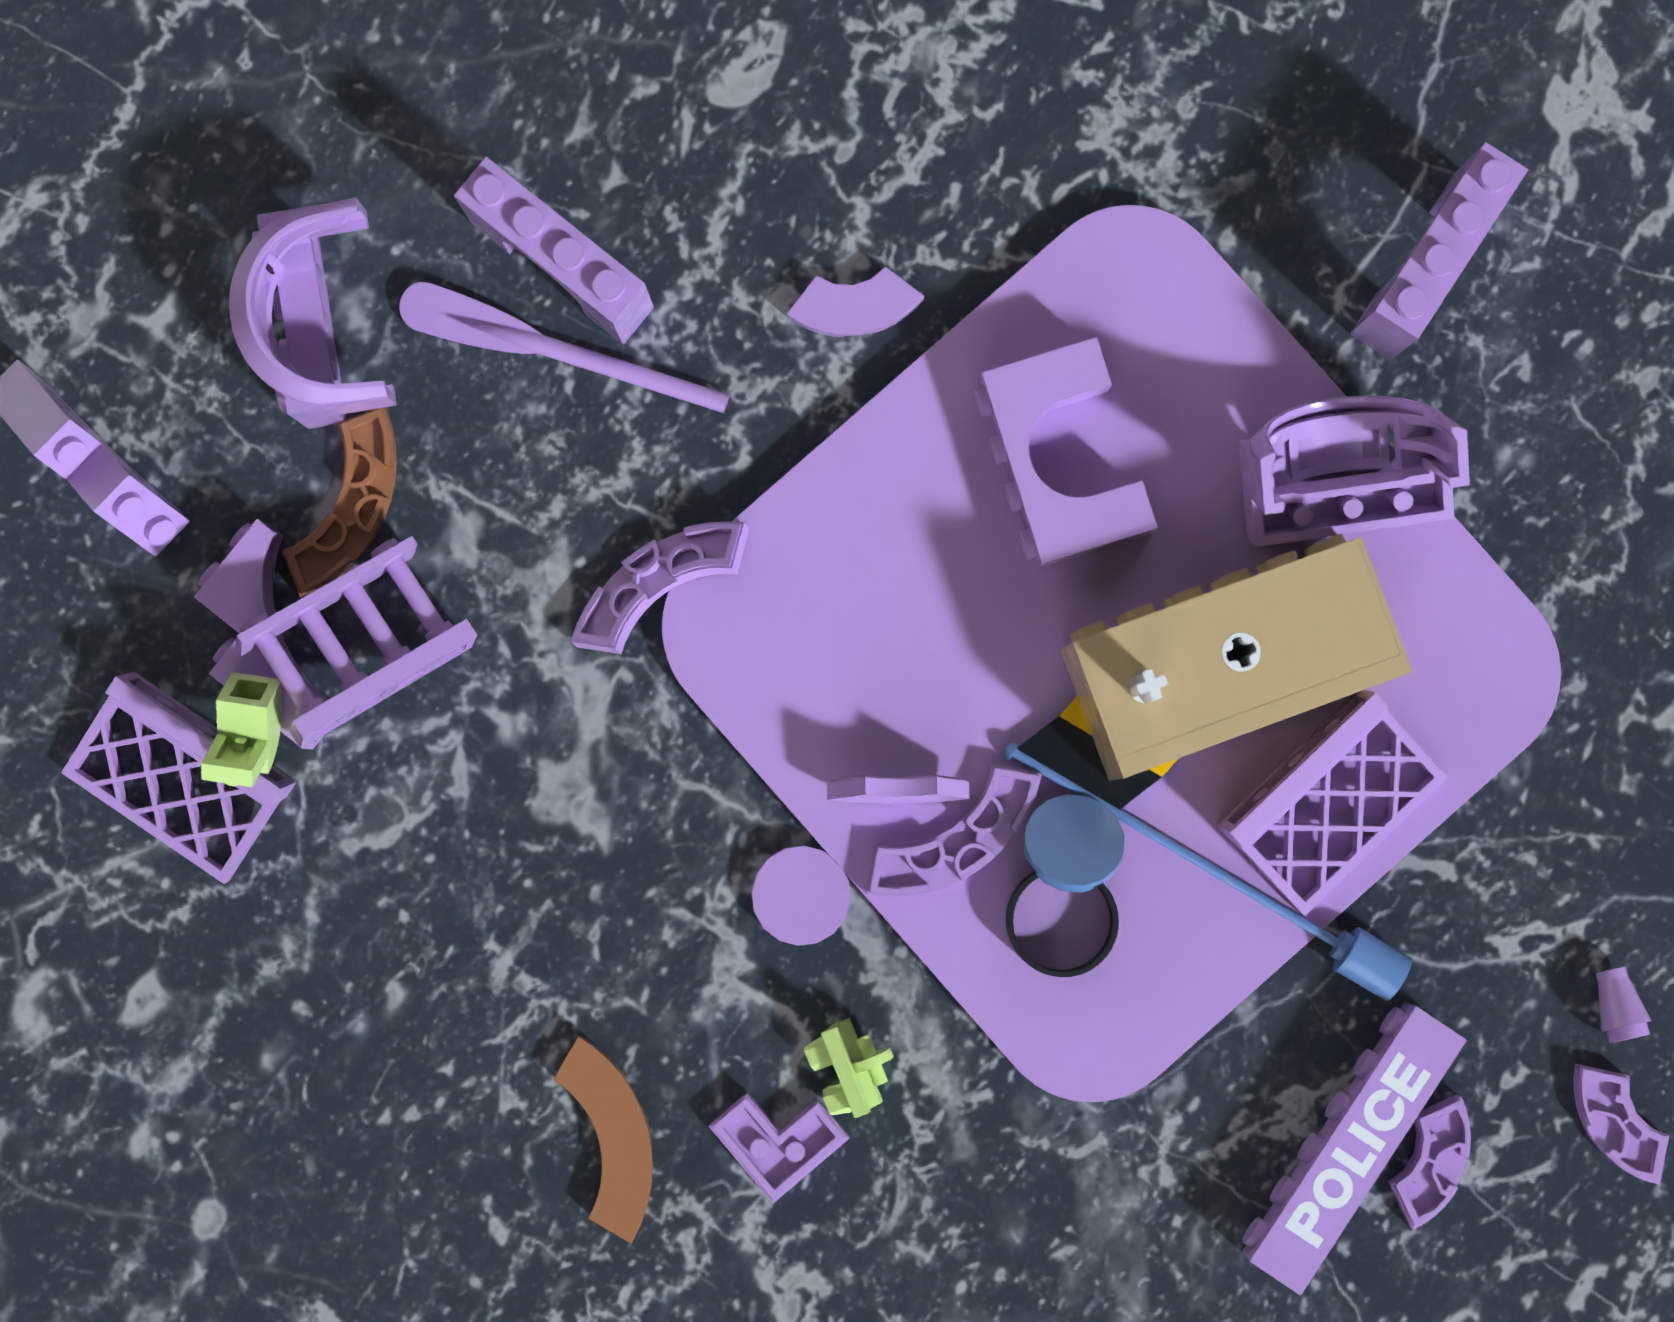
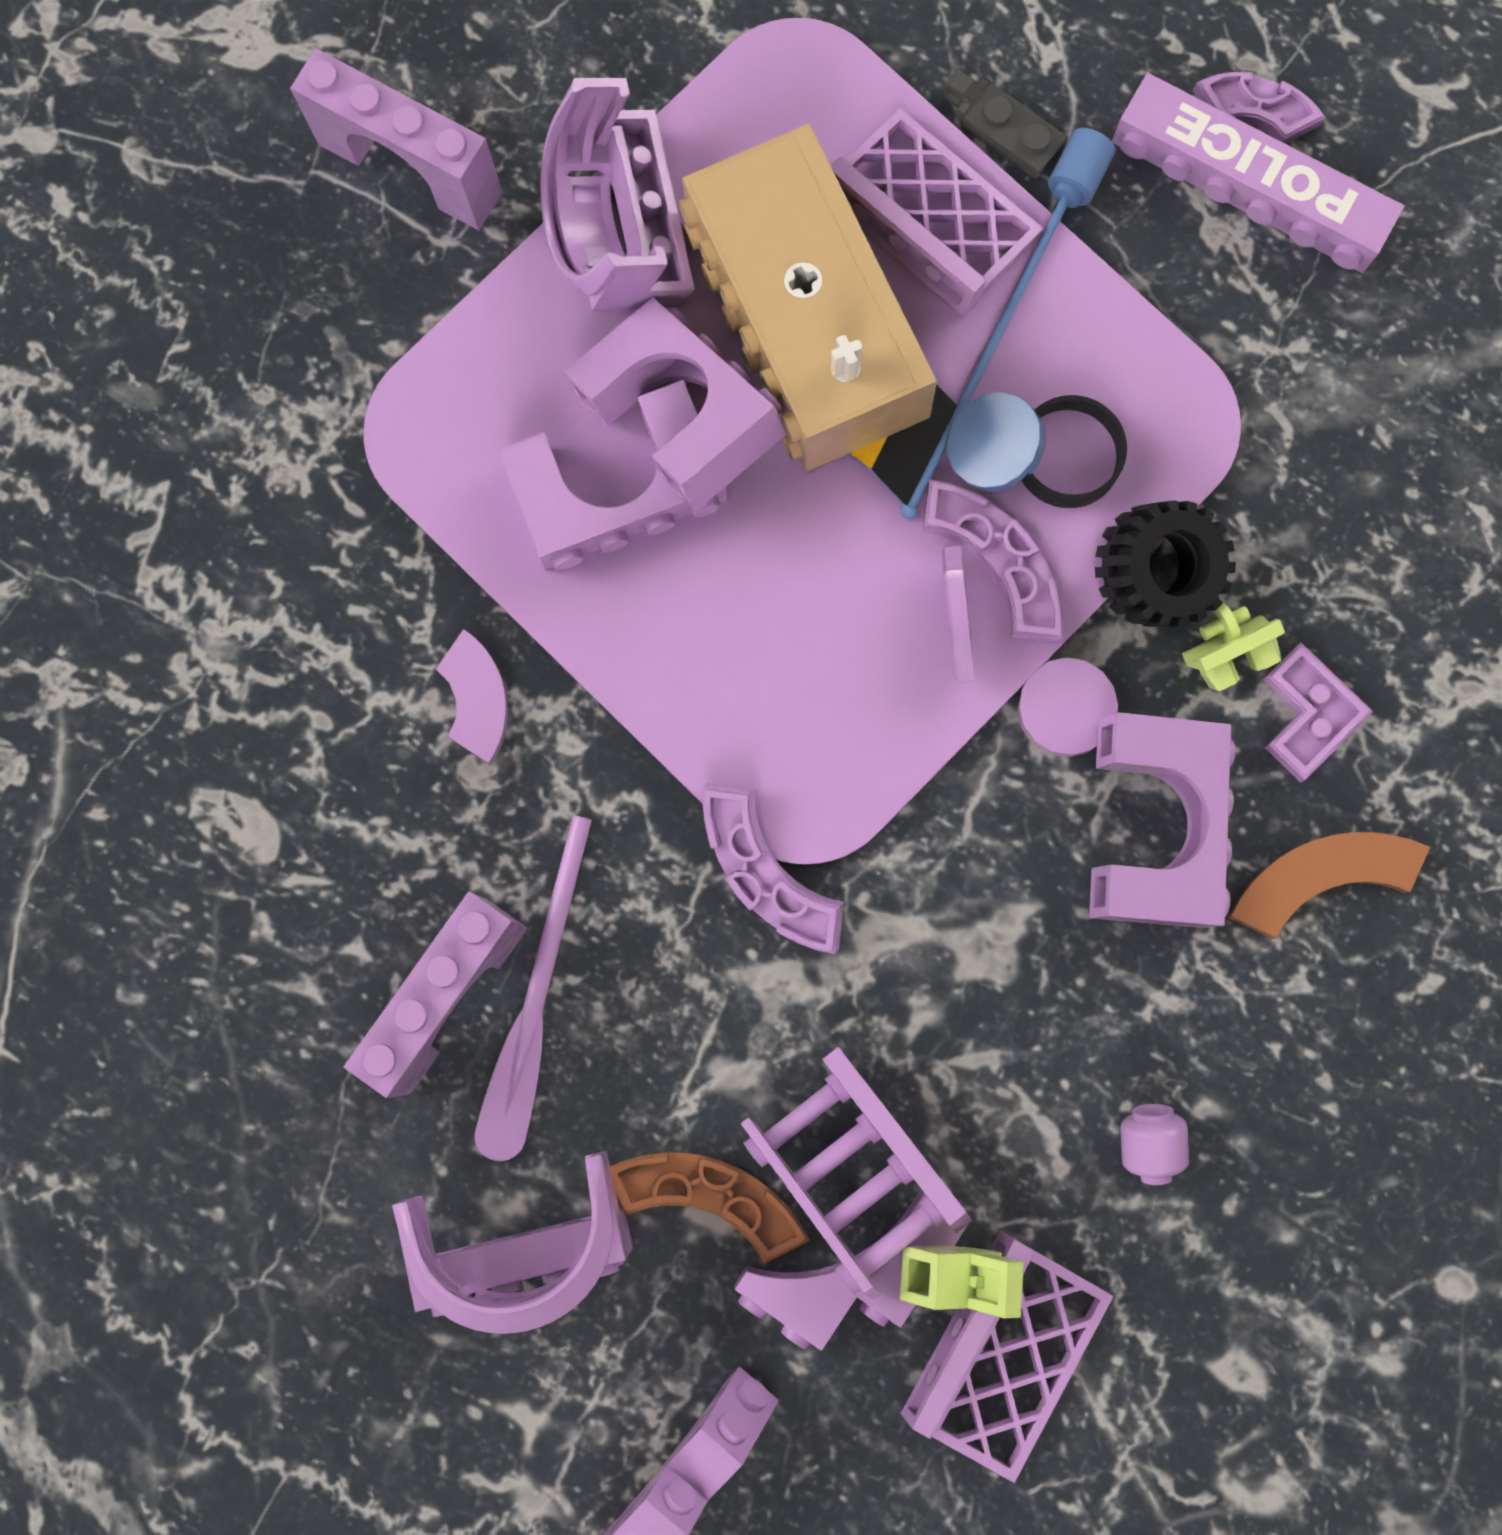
camera: 90 degrees left, 5 degrees down
(363, 936) = (1154, 1143): none -> lavender head
(609, 998) = (1196, 763): none -> lavender arch
(909, 1032) = (1201, 564): none -> black tyre
(1100, 572) = (660, 349): none -> lavender arch
(1428, 889) = (1004, 123): none -> dark grey hinge

